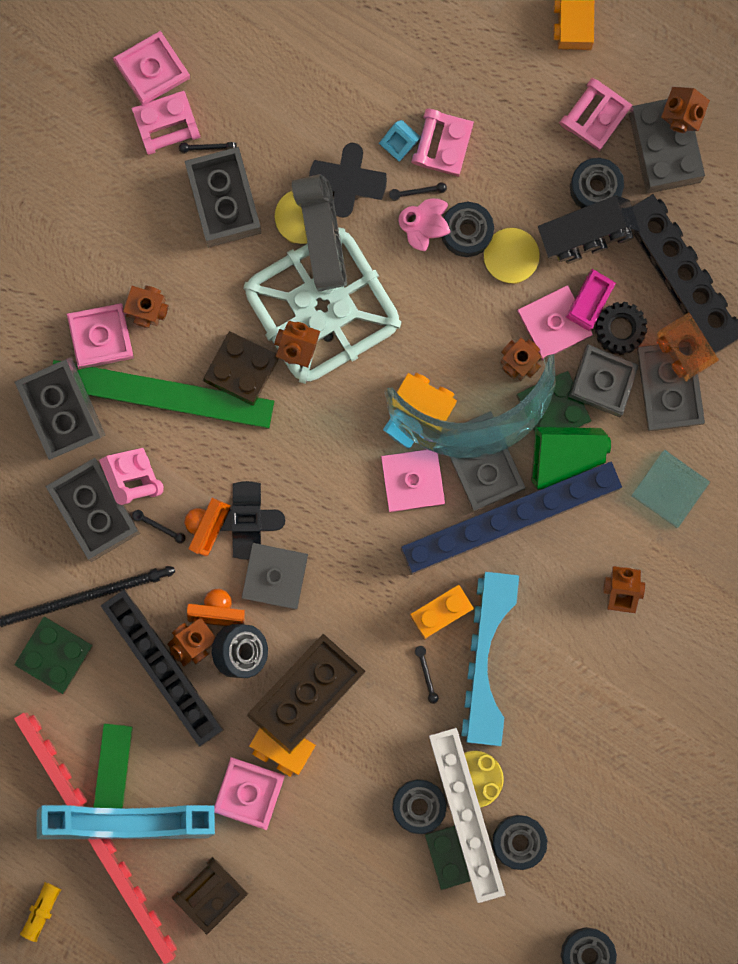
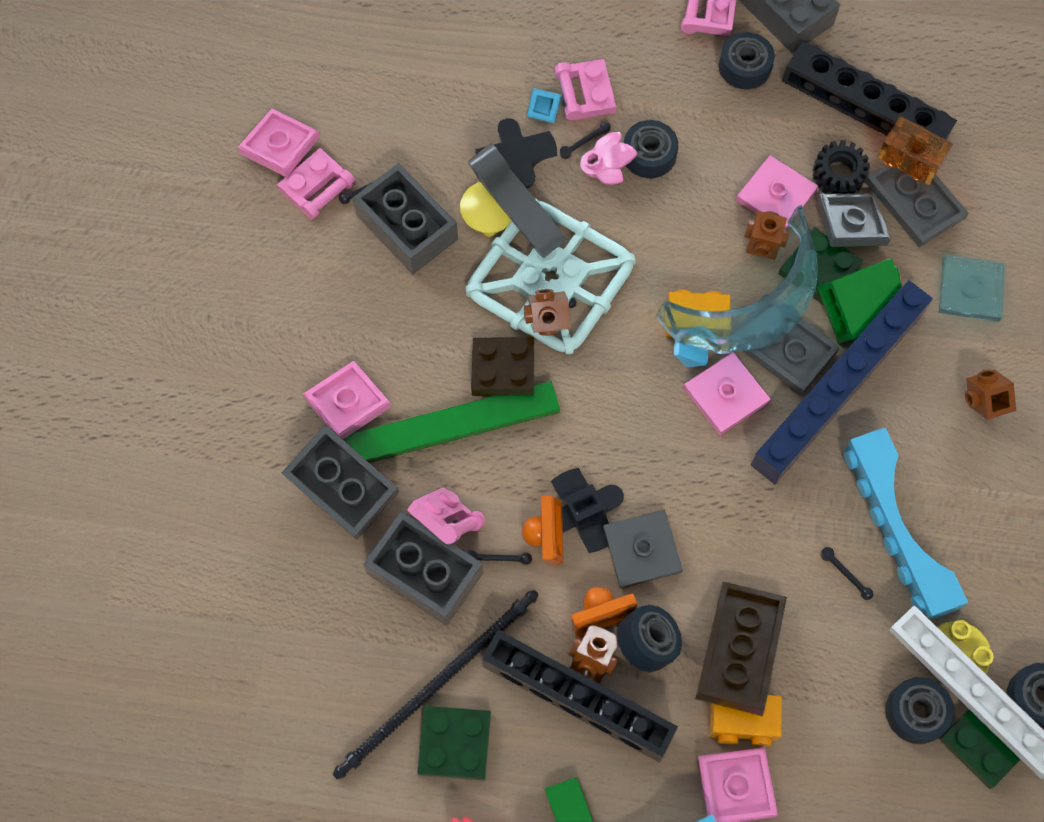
camera: 20 degrees left, 15 degrees down
(138, 299) = (379, 349): dark orange brick -> none
(441, 612) = (828, 501): light orange brick -> none
(512, 255) = (703, 154): light yellow dish -> none
(589, 229) = (766, 88): black brick -> none
(590, 299) = (798, 157): dark pink tile -> none

